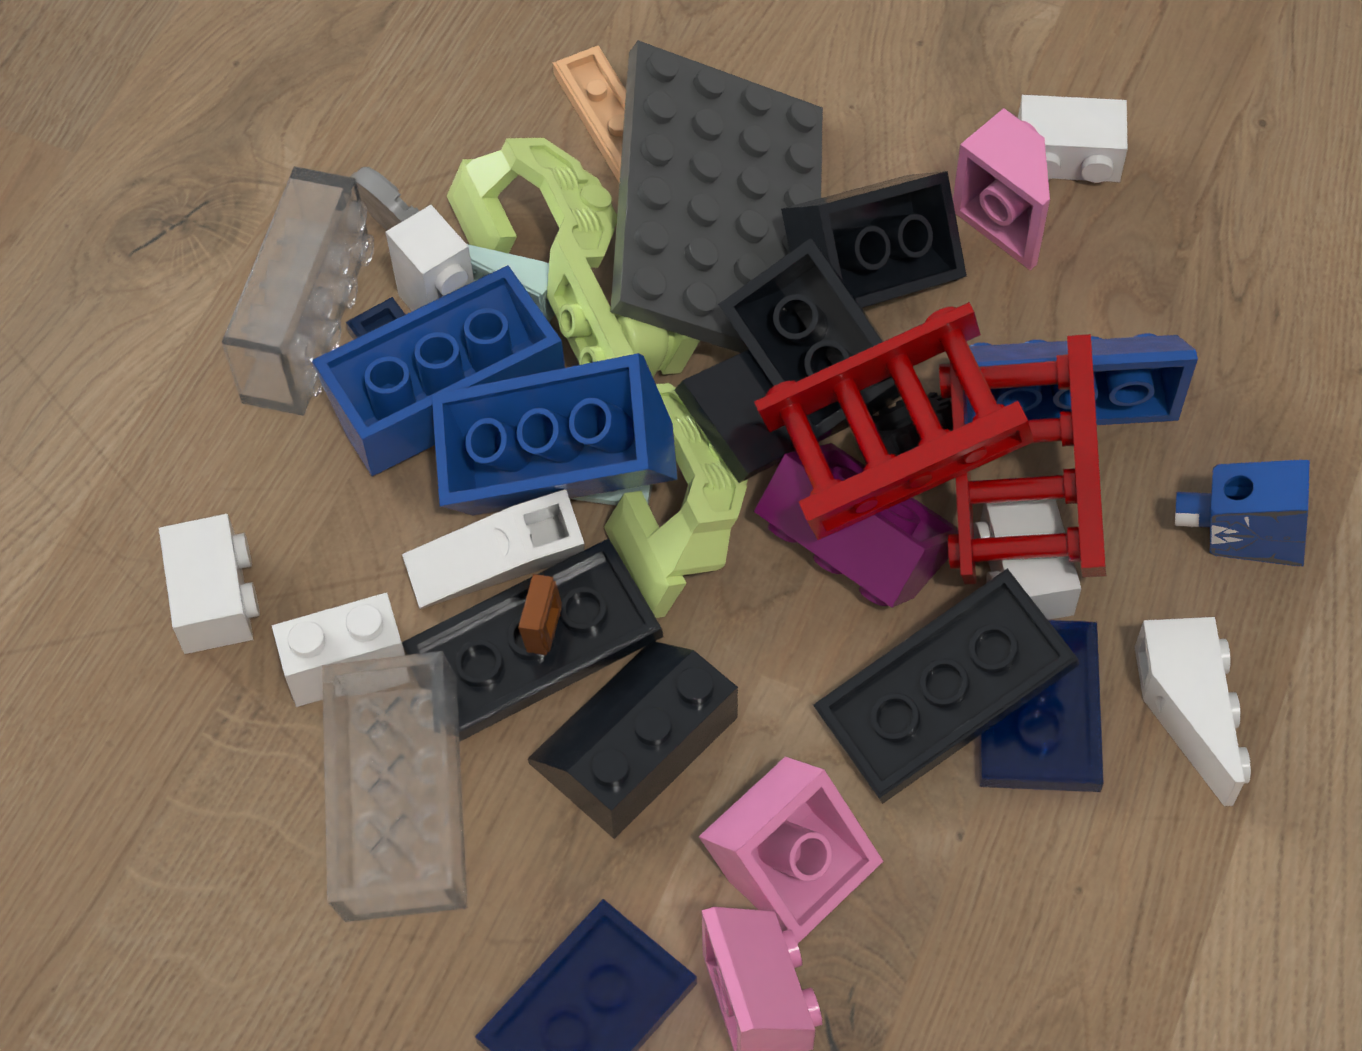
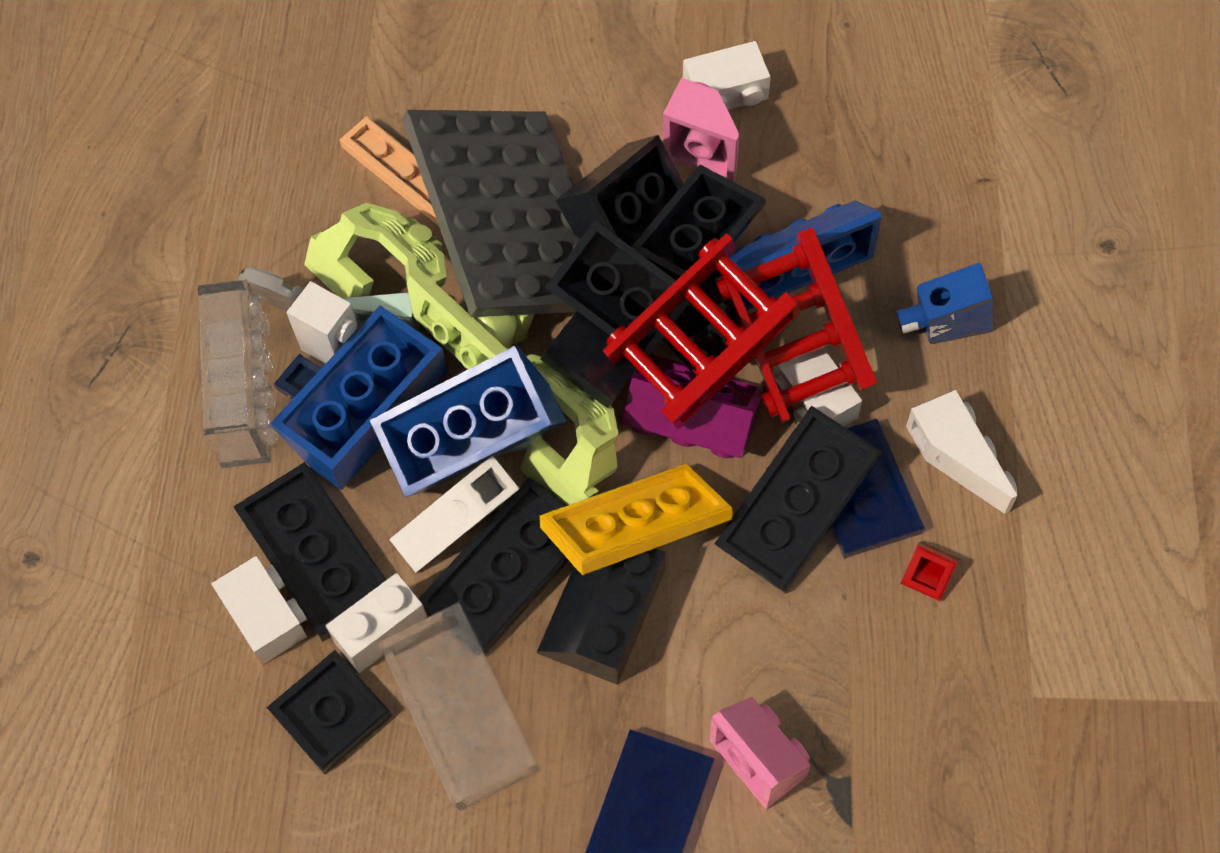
camera: 20 degrees left, 5 degrees up
(238, 739) = (329, 711): none -> black tile
(302, 526) = (310, 546): none -> black tile
(540, 614) = (509, 549): dark orange tile -> none
(718, 632) = (635, 518): none -> yellow tile
(792, 846) = (740, 646): bright pink slope -> none
(970, 270) = (697, 213): none -> black slope
(1088, 842) = (929, 571): none -> red slope

